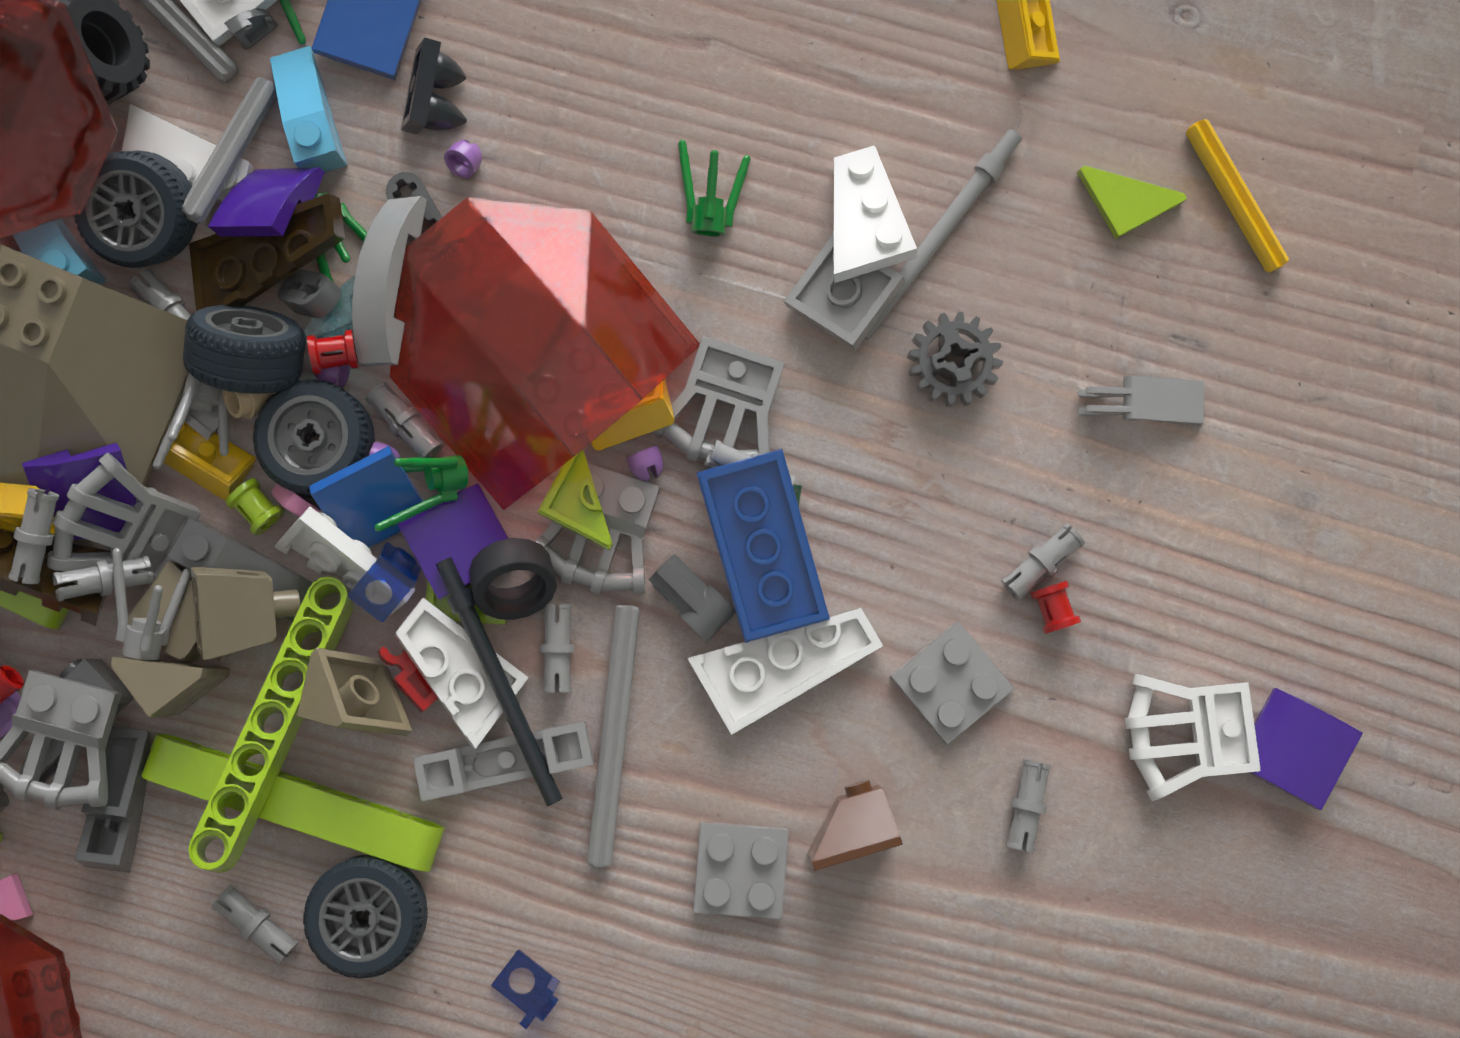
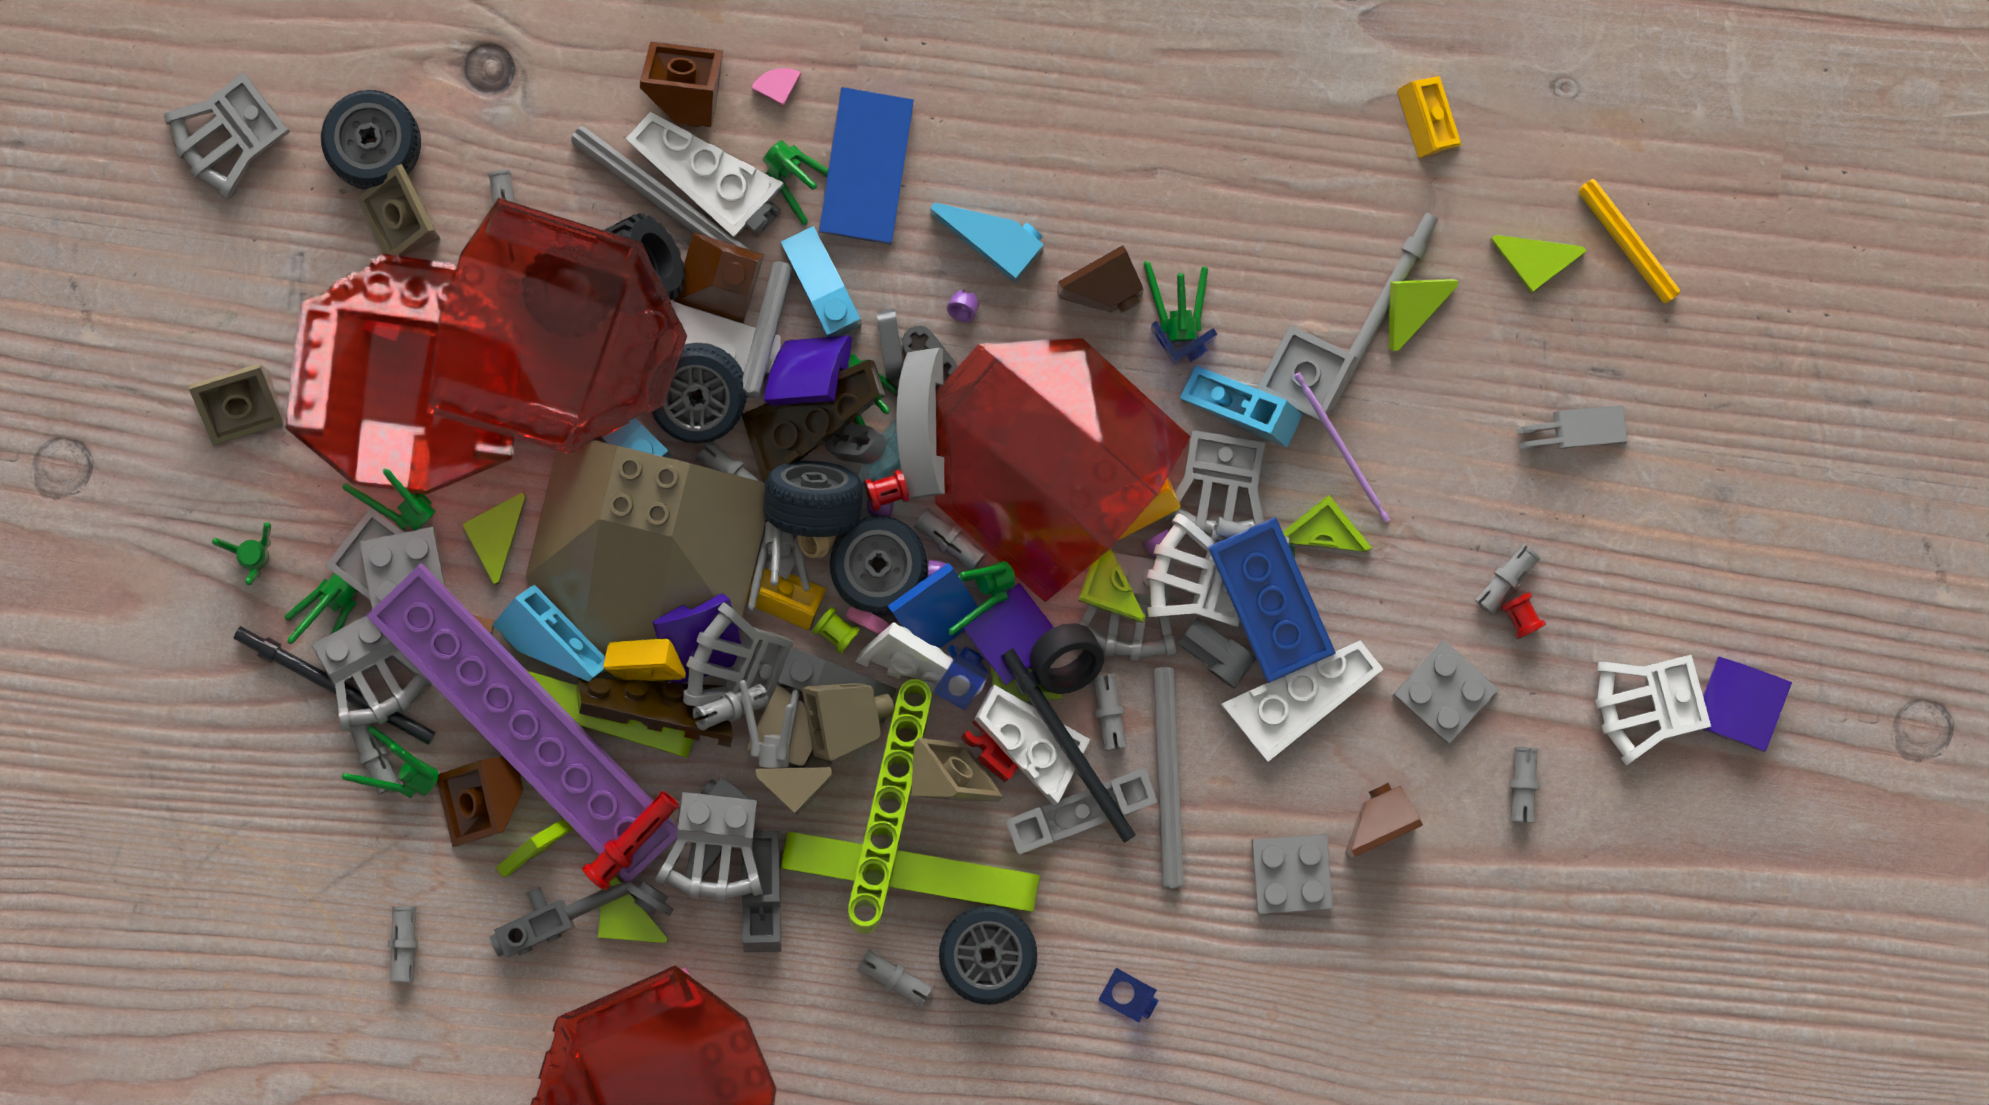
camera: 10 degrees left, 0 degrees up
(33, 536) = (676, 679): light grey pin -> none
(190, 86) = (719, 277): none -> reddish brown slope
(371, 185) = (890, 343): none -> dark grey beam
(422, 106) = (920, 265): black tile -> none
(511, 85) = (995, 238): none -> medium azure slope
(624, 150) = (1104, 284): none -> reddish brown slope
(693, 528) = (1210, 596): none -> white plate
(716, 245) = (1191, 351): none -> clear blue bracket
(766, 317) = (1242, 405): none -> medium azure slope
(842, 472) = (1327, 528): none -> lime tile
(867, 217) = (1316, 308): white wing -> none
(872, 379) = (1342, 448): none -> lavender piece
(958, 377) = (1415, 434): dark grey gear -> none
(978, 231) = (1412, 305): none -> lime tile

